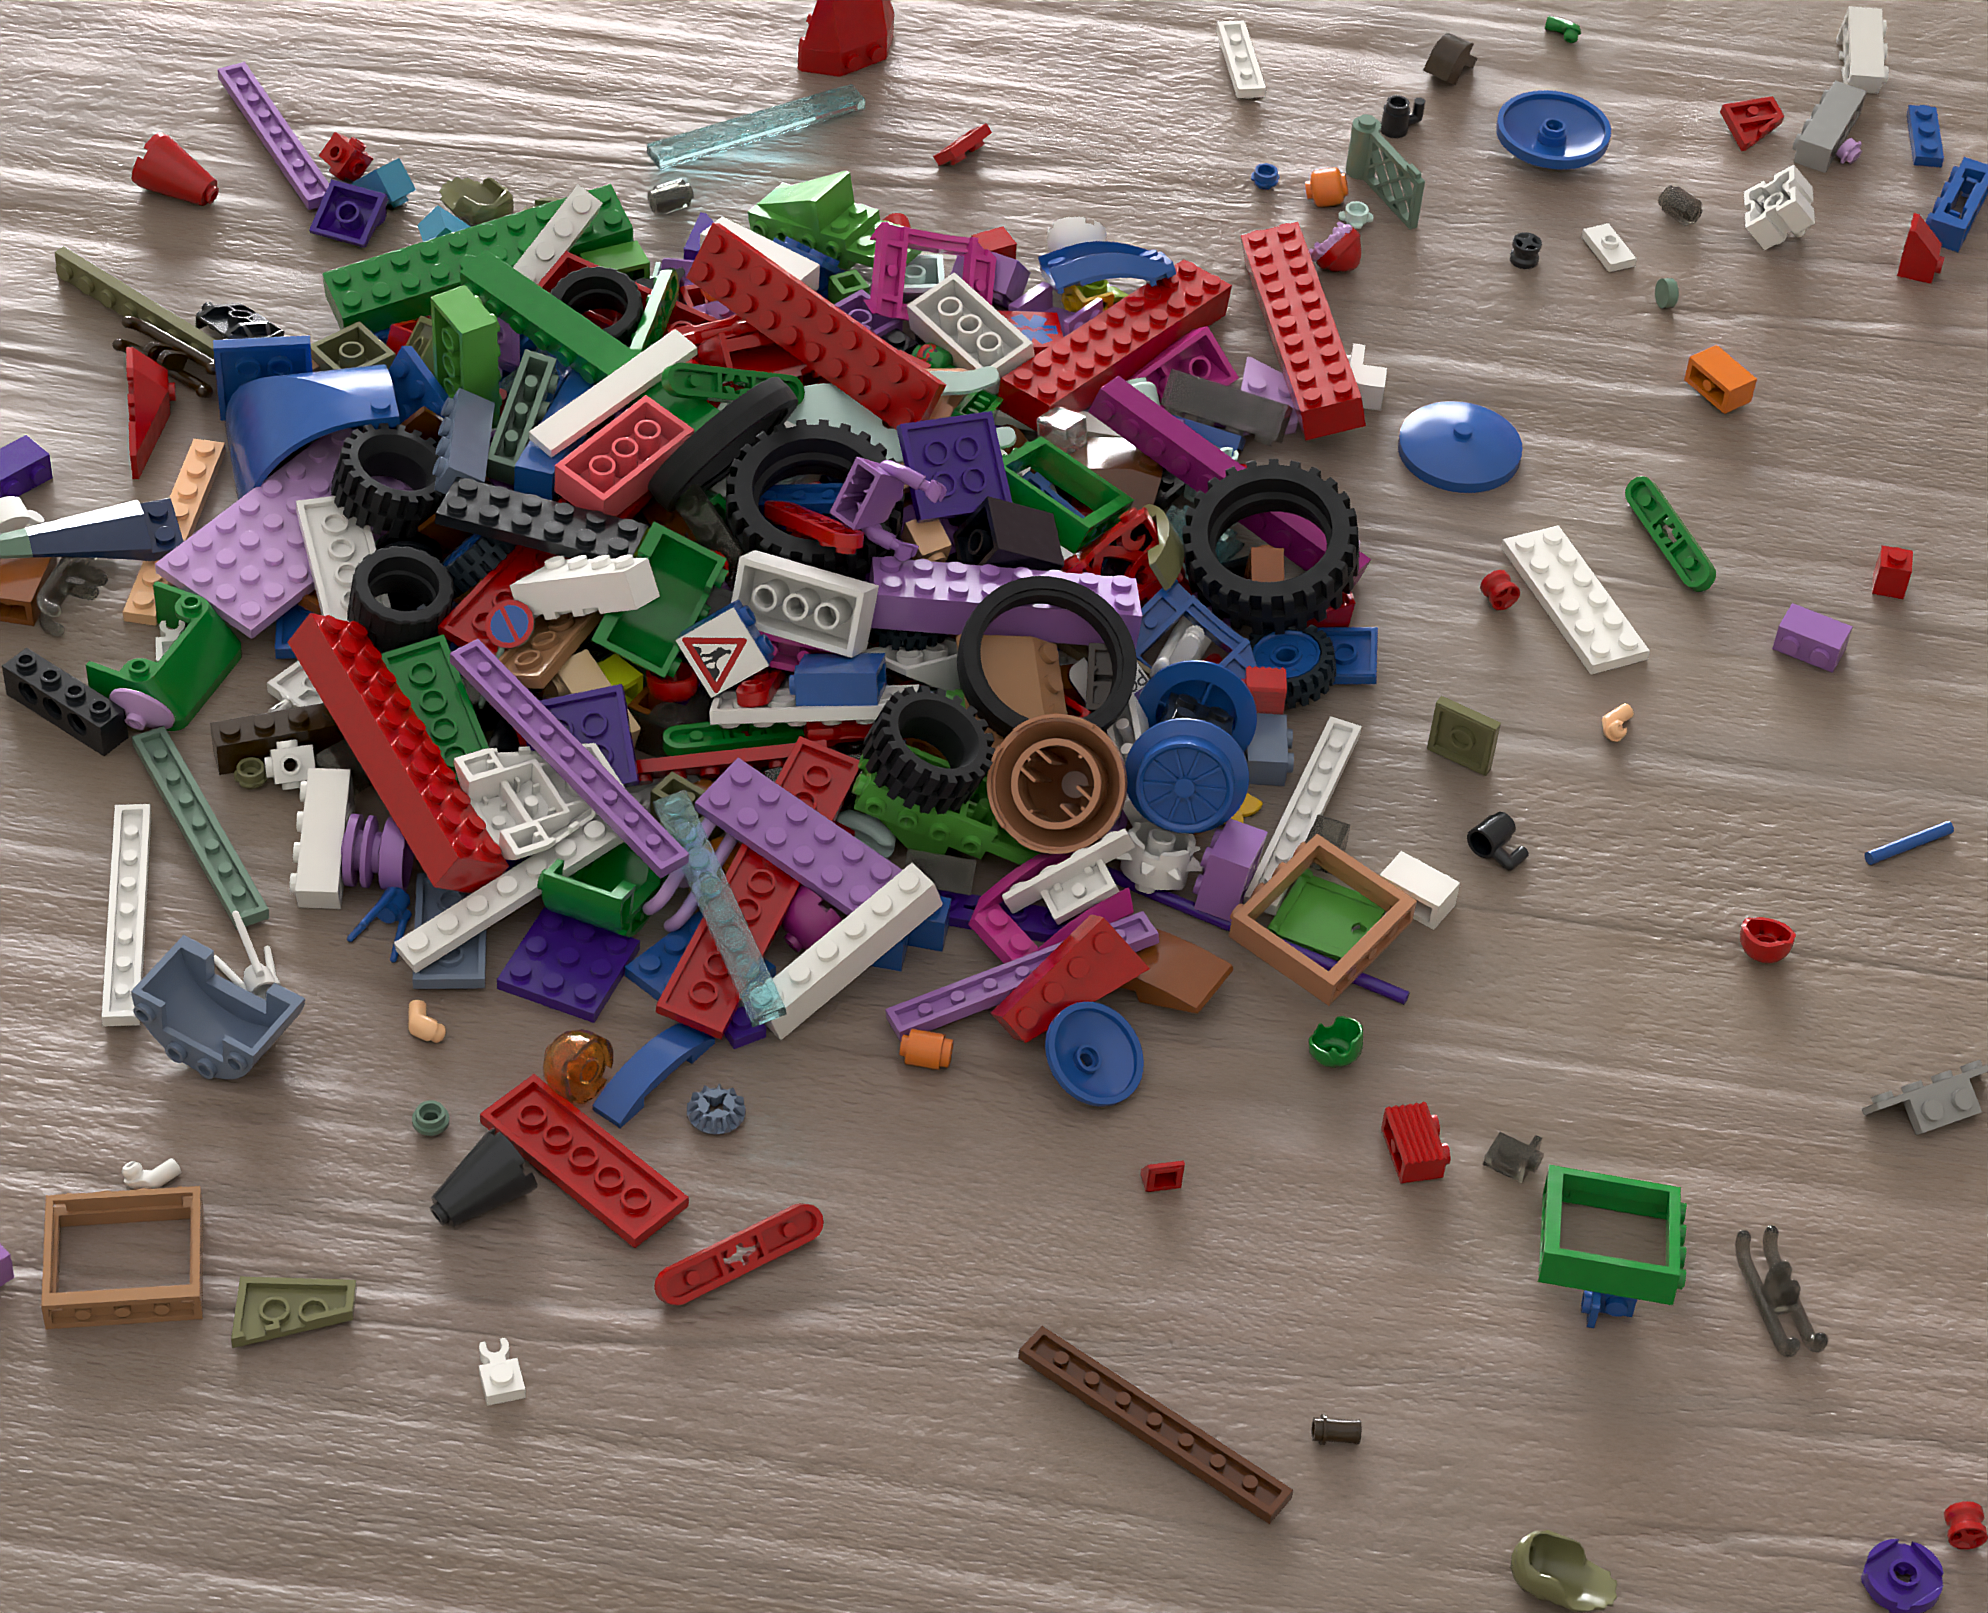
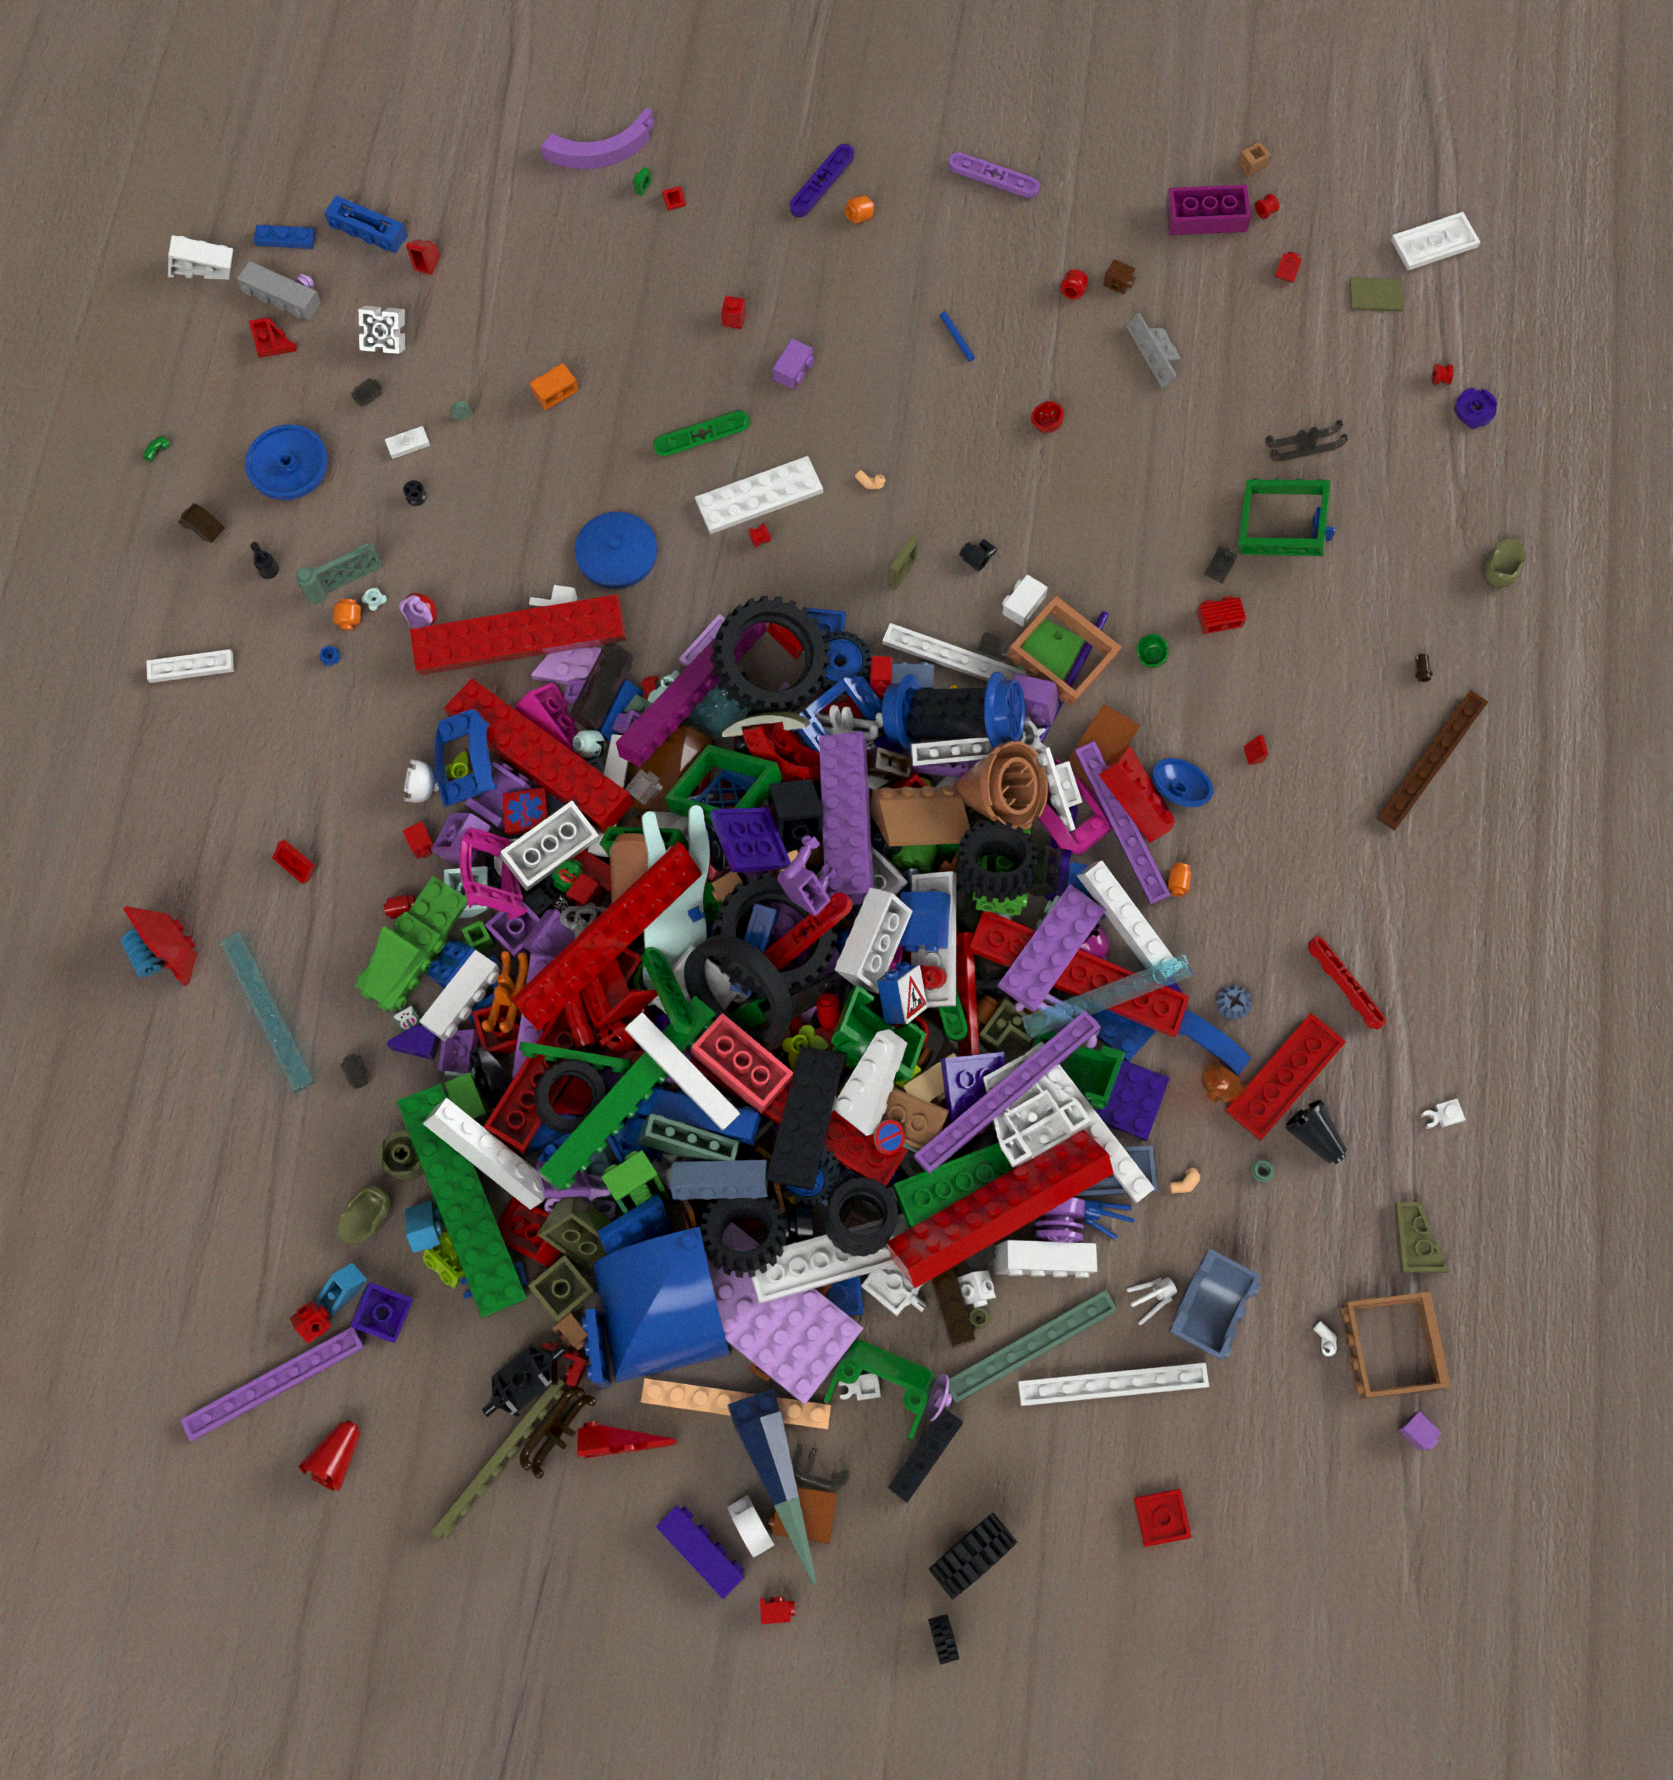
camera: 85 degrees left, 25 degrees up
(1054, 592) = (939, 759): black tyre -> none
(1265, 564) = (782, 667): dark orange slope -> none

